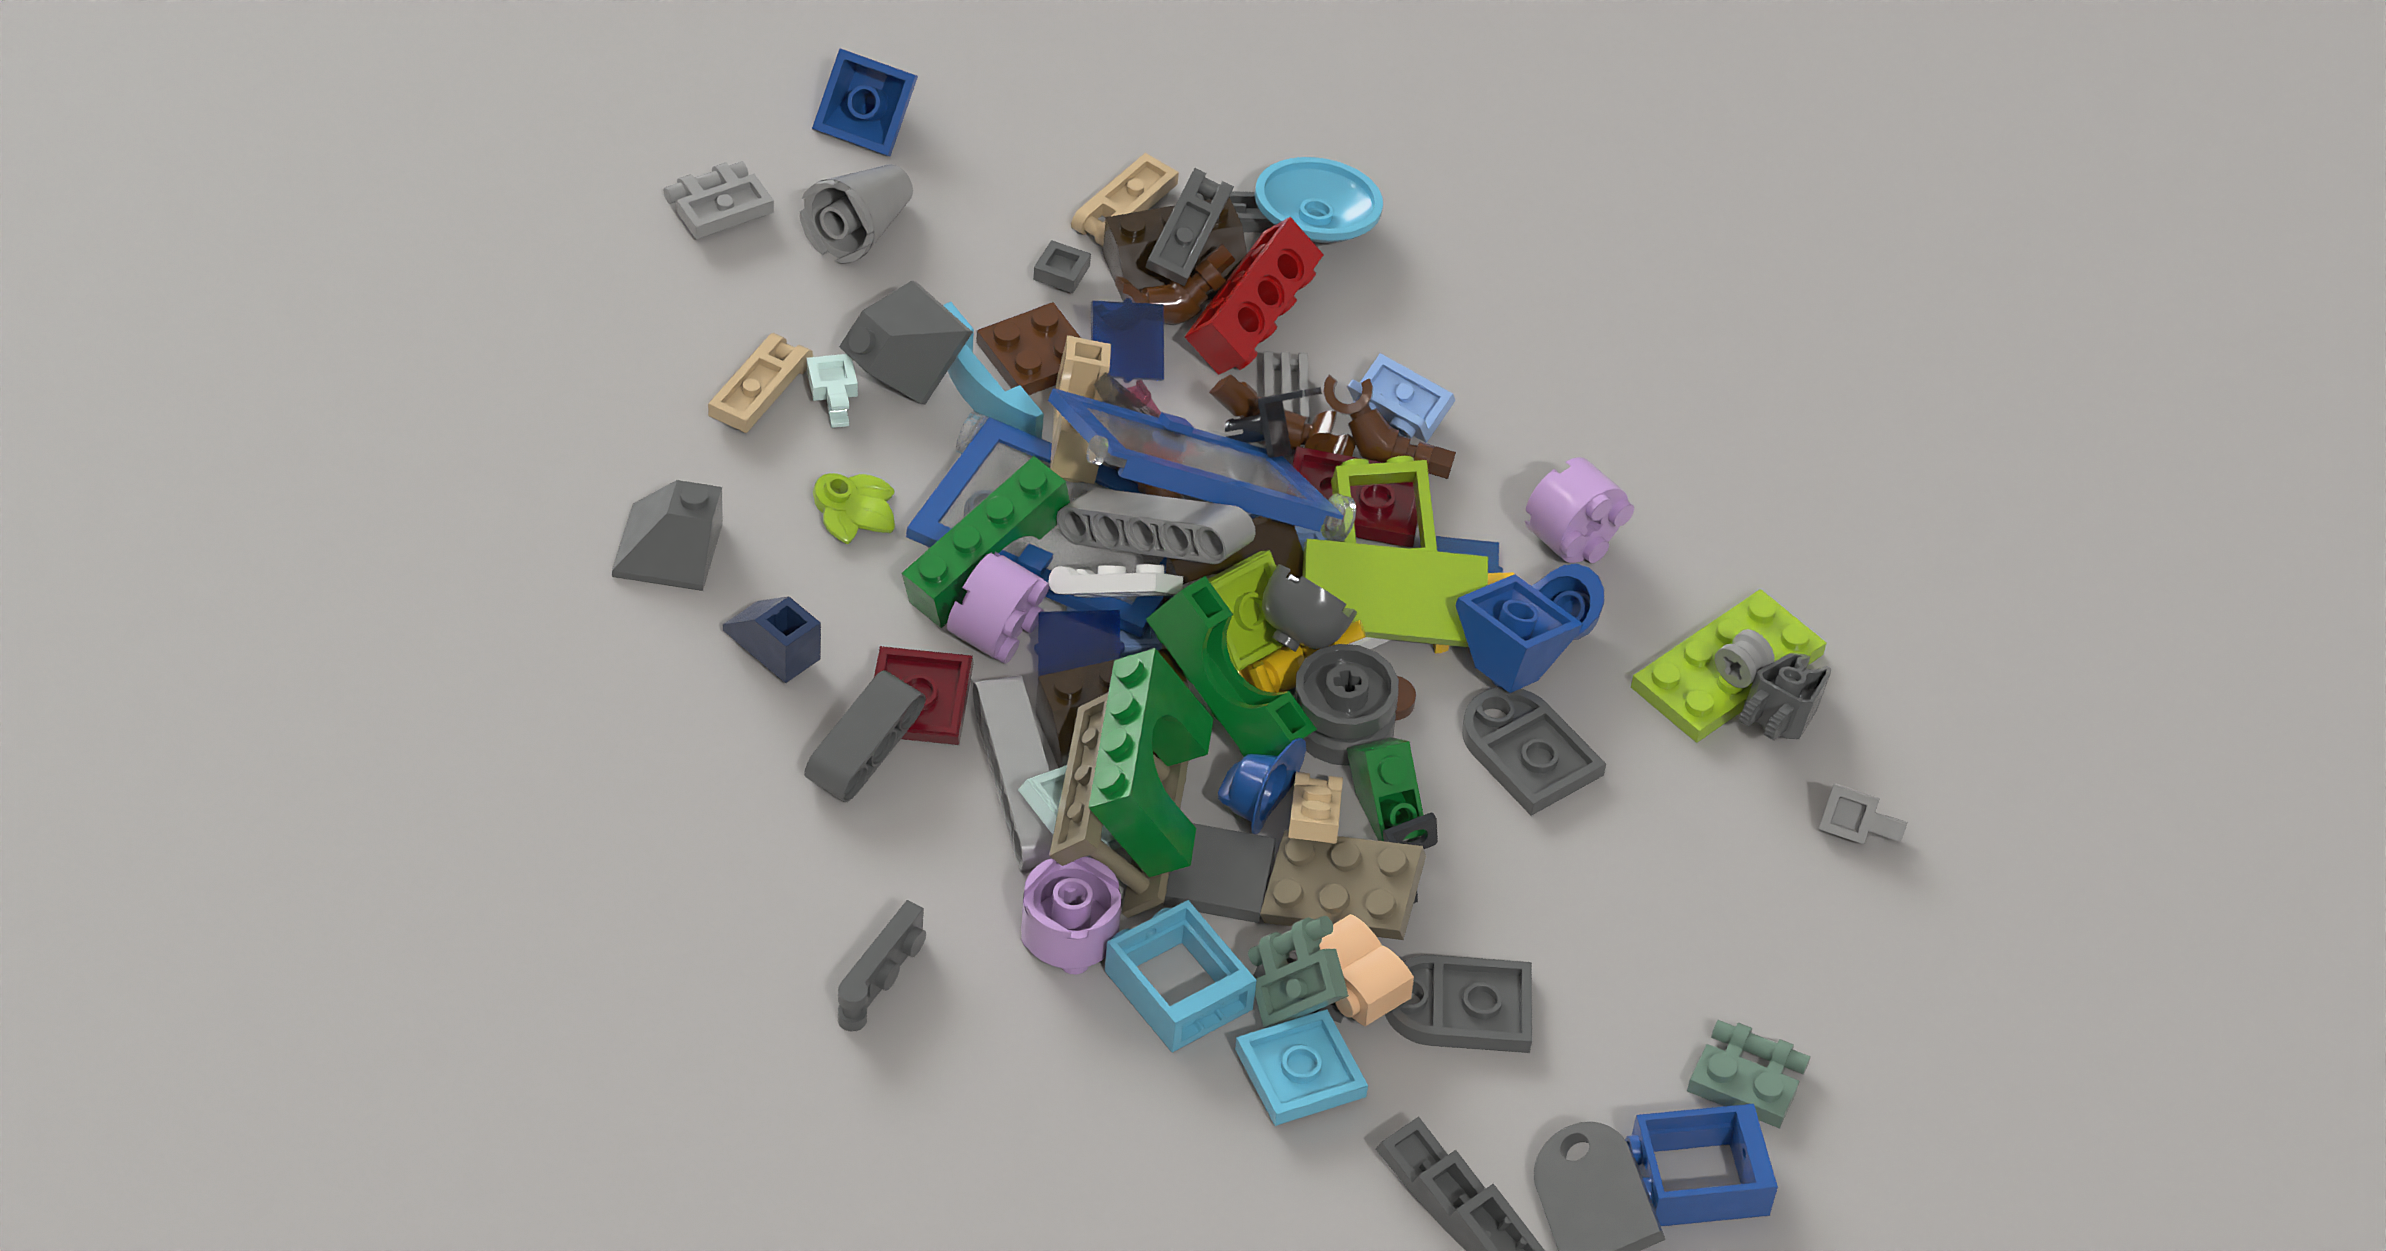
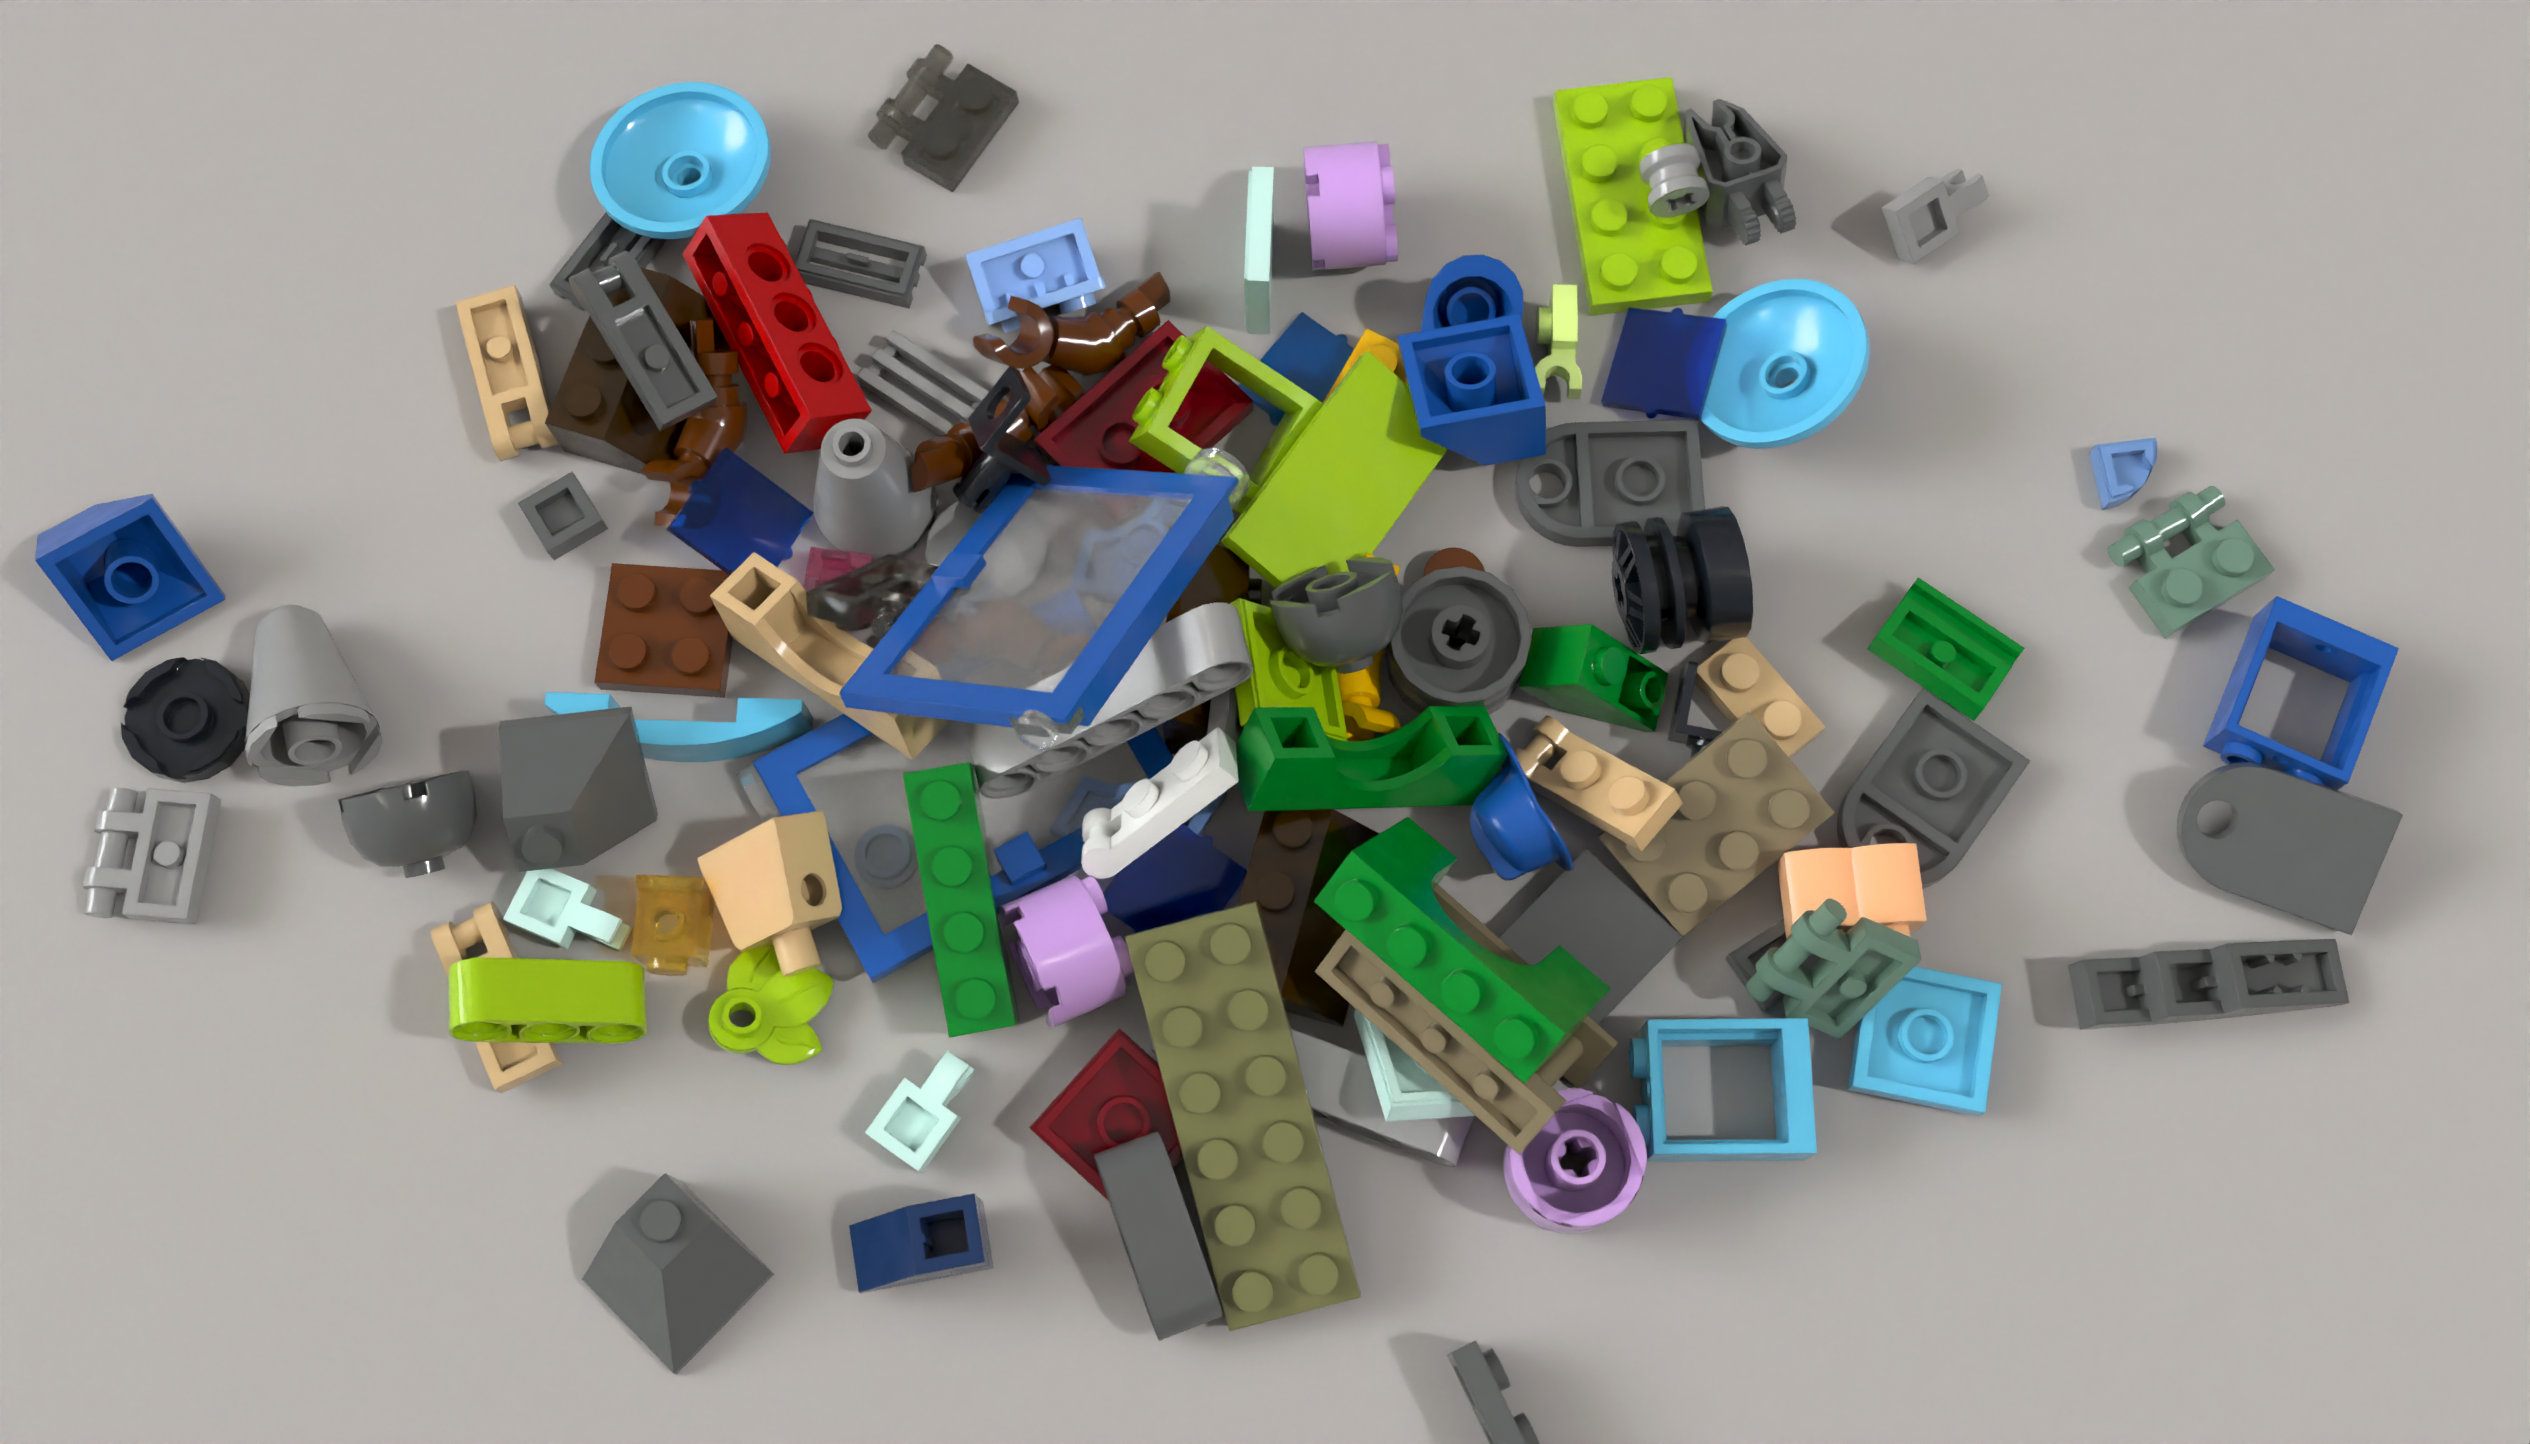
camera: 50 degrees left, 25 degrees up
(776, 393) = (547, 1001): none -> lime beam
(798, 168) = (186, 719): none -> black tile
(829, 287) = (412, 822): none -> dark grey cylinder
(845, 600) = (916, 1118): none -> light aqua plate
(867, 434) = (691, 938): none -> clear yellow brick
(926, 458) = (776, 887): none -> tan torso
(967, 733) = (1243, 1116): none -> olive plate
(1191, 371) = (867, 492): none -> light grey cone
(1345, 344) = (854, 284): none -> dark grey tile
(1448, 886) = (1744, 681): none -> tan plate
(1463, 322) = (957, 128): none -> clear smoke plate
(1483, 787) = (1695, 578): none -> black wheel
(1505, 482) = (1259, 250): none -> light aqua tile
(1567, 962) = (1946, 649): none -> green plate
(1599, 666) = (1559, 330): none -> yellowish green plate
(1628, 730) = (1664, 363): none -> clear blue piece
(1673, 775) = (1779, 336): none -> medium azure dish
(1781, 1010) = (2122, 469): none -> medium blue tile

